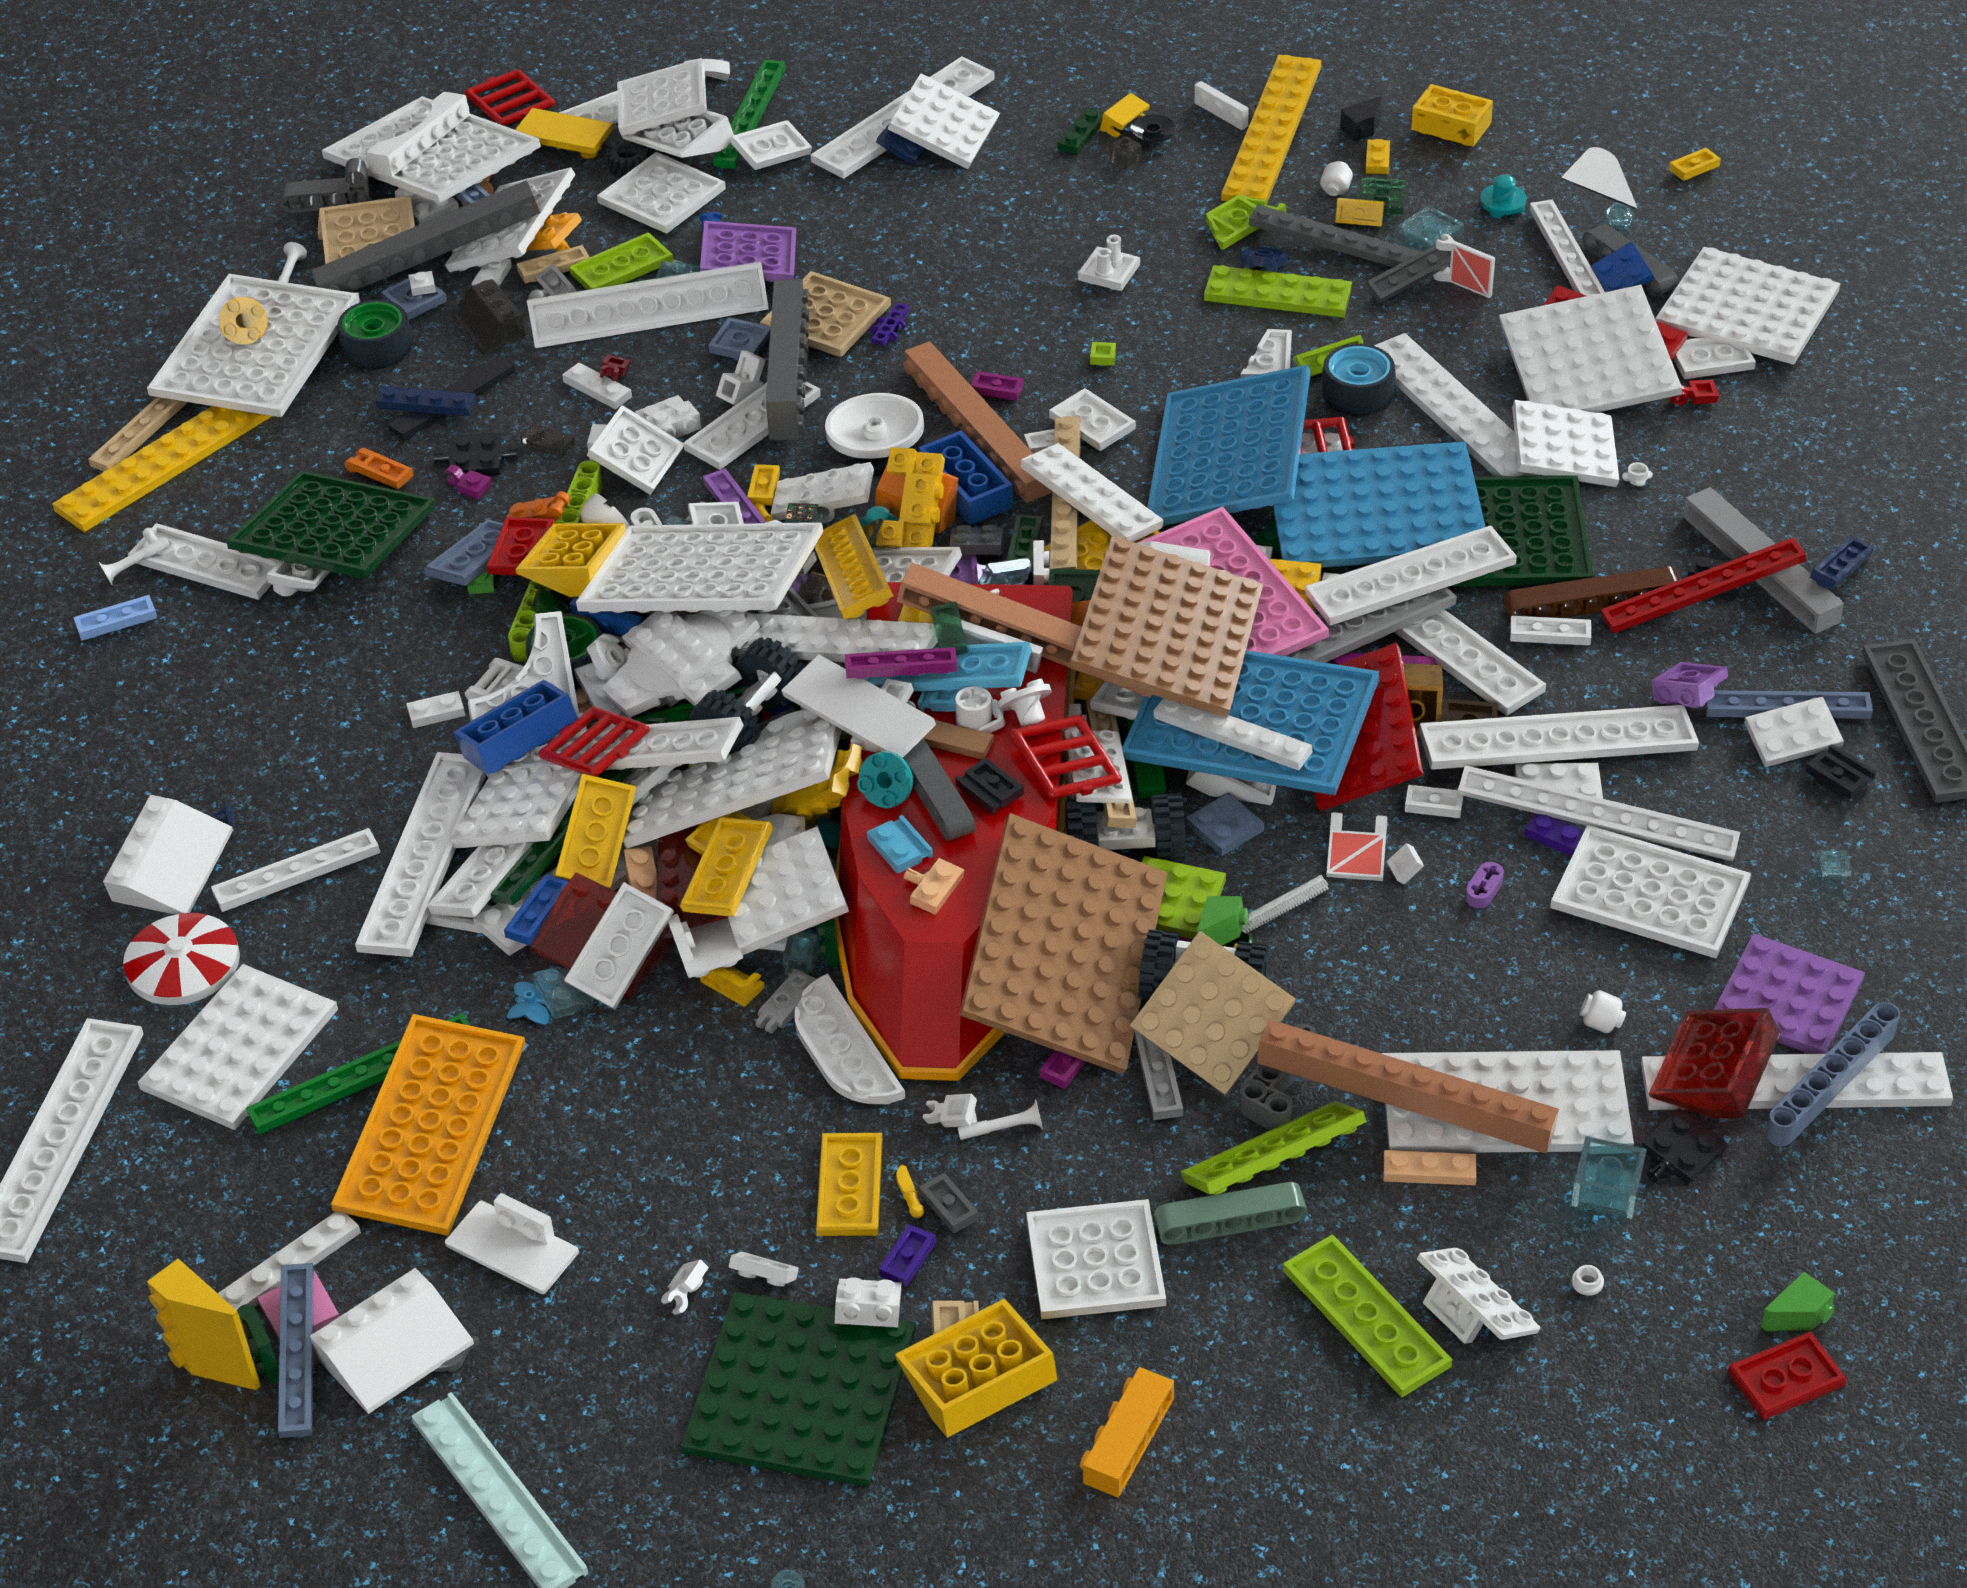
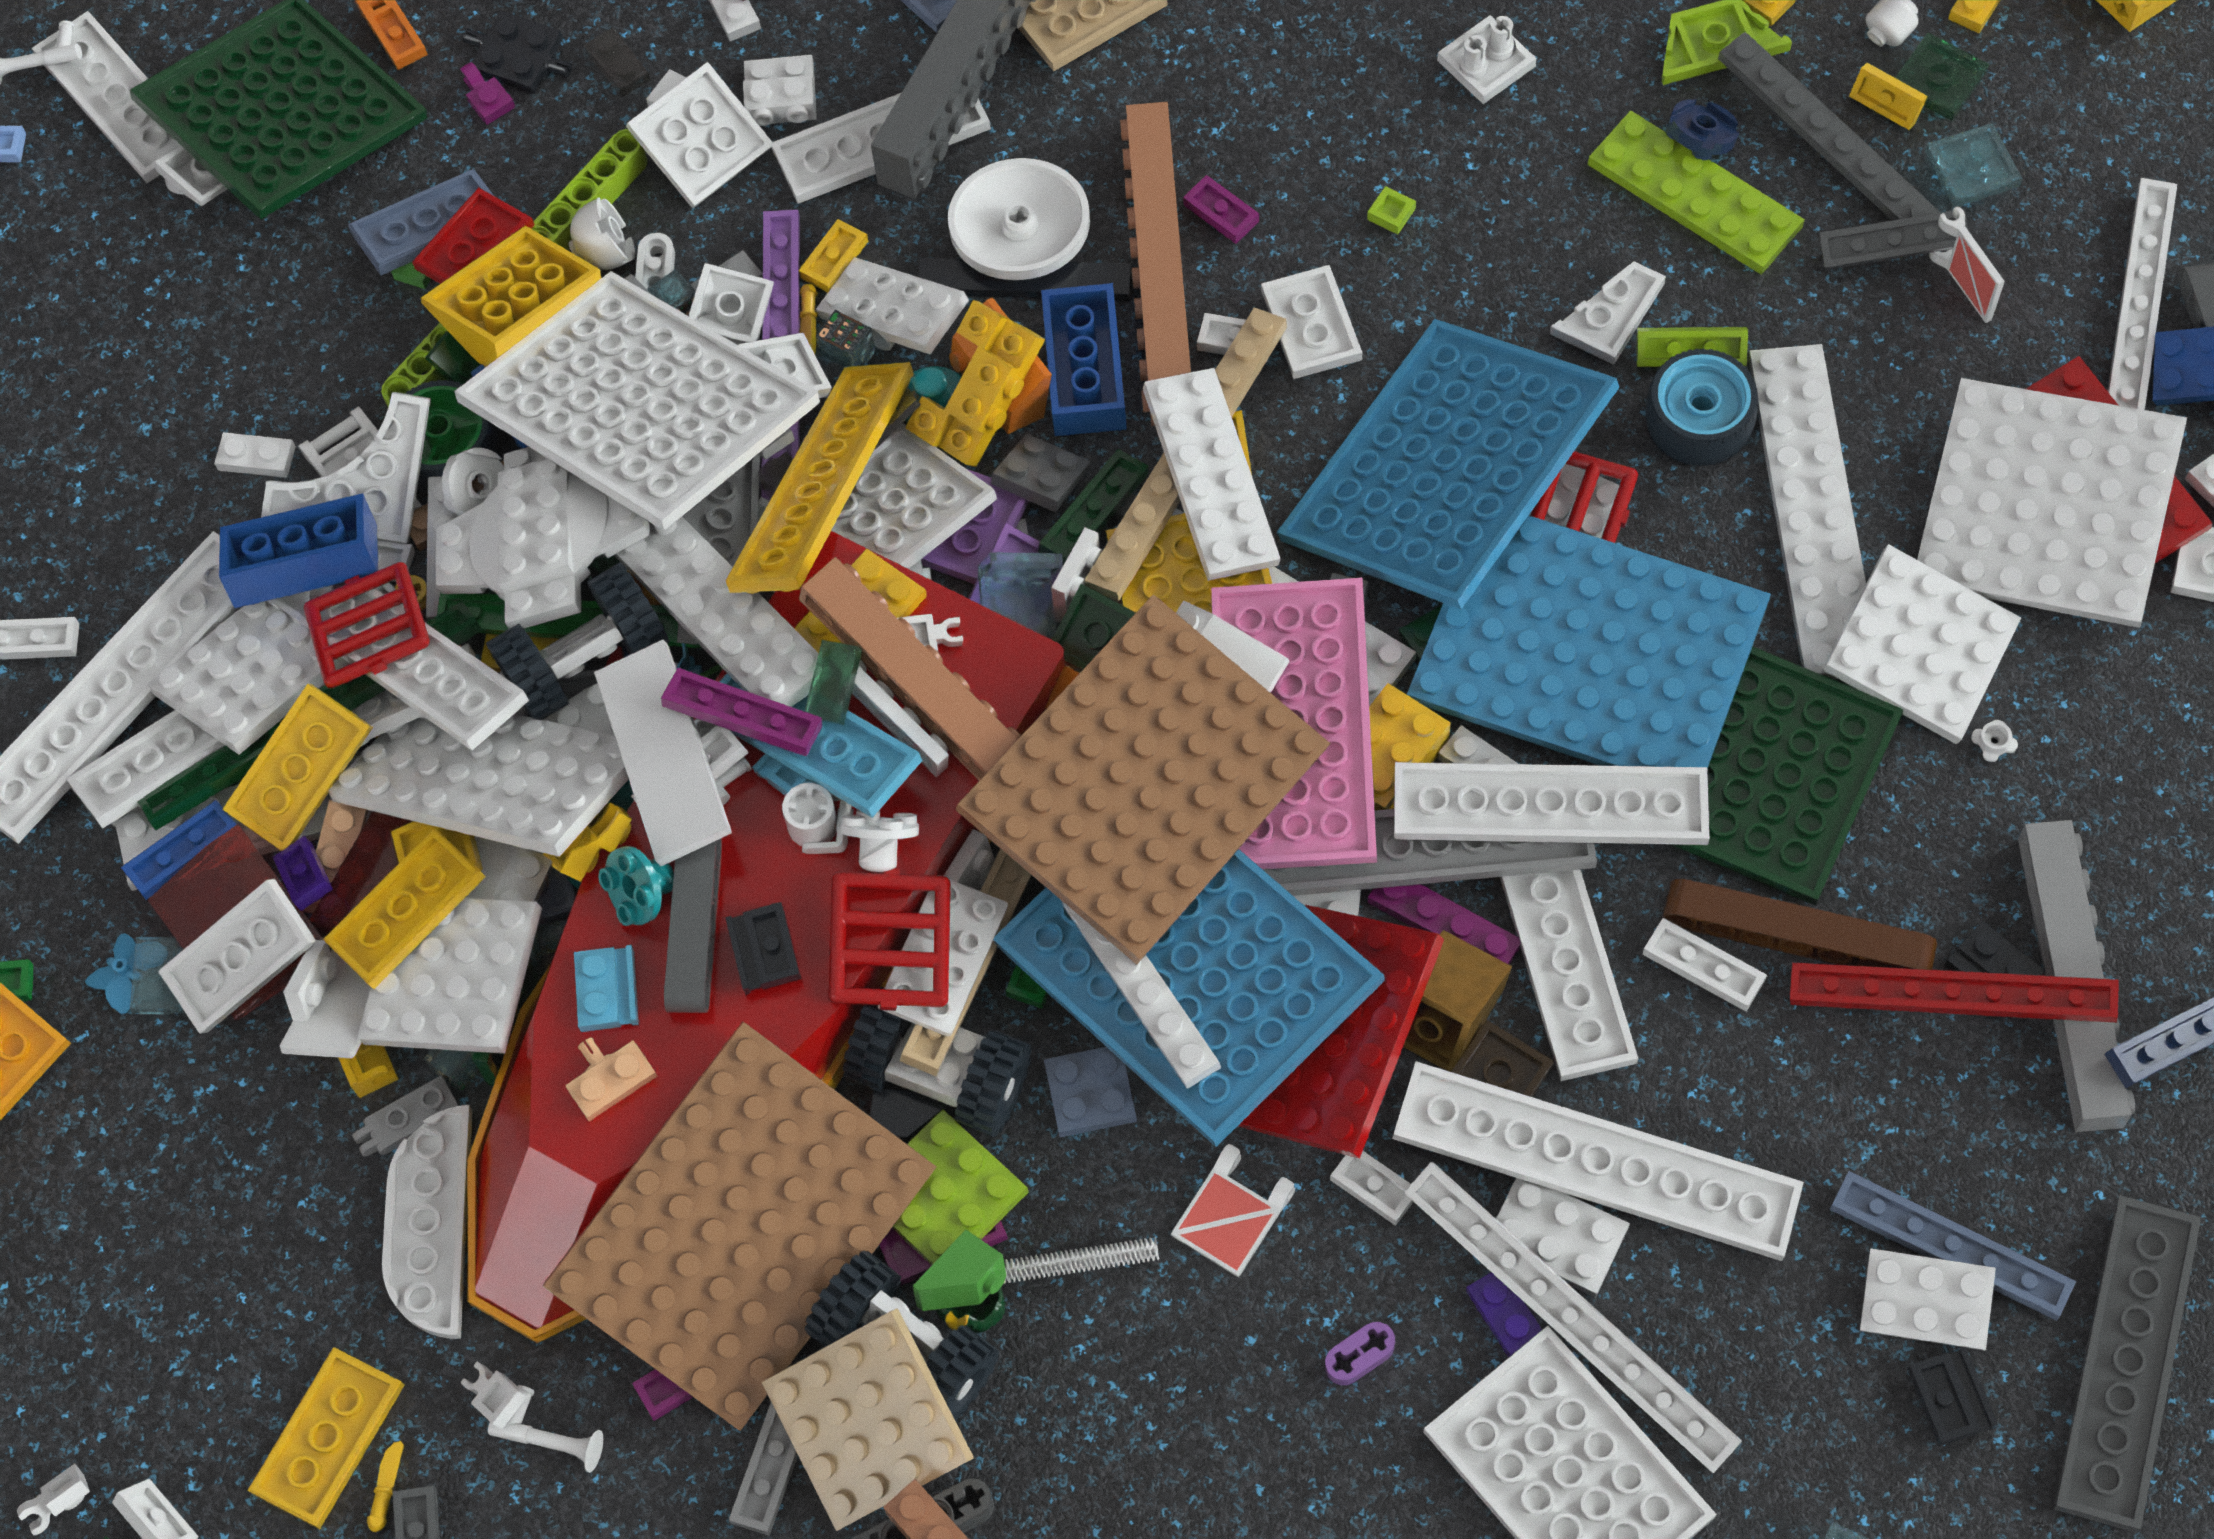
camera: 30 degrees right, 20 degrees up
(541, 508) = (529, 186): orange plate -> none
(646, 884) = (302, 873): none -> dark purple plate
(745, 380) = (889, 72): white brick -> none
(880, 331) = (1147, 35): dark purple piece -> none
(959, 740) = (767, 841): medium nougat tile -> none
(1405, 863) = (1273, 1272): white plate -> none
(1503, 197) = (2110, 150): teal plate -> none
(1688, 684) = (1829, 1151): medium lavender plate -> none
(1699, 391) = (2176, 629): red plate -> none

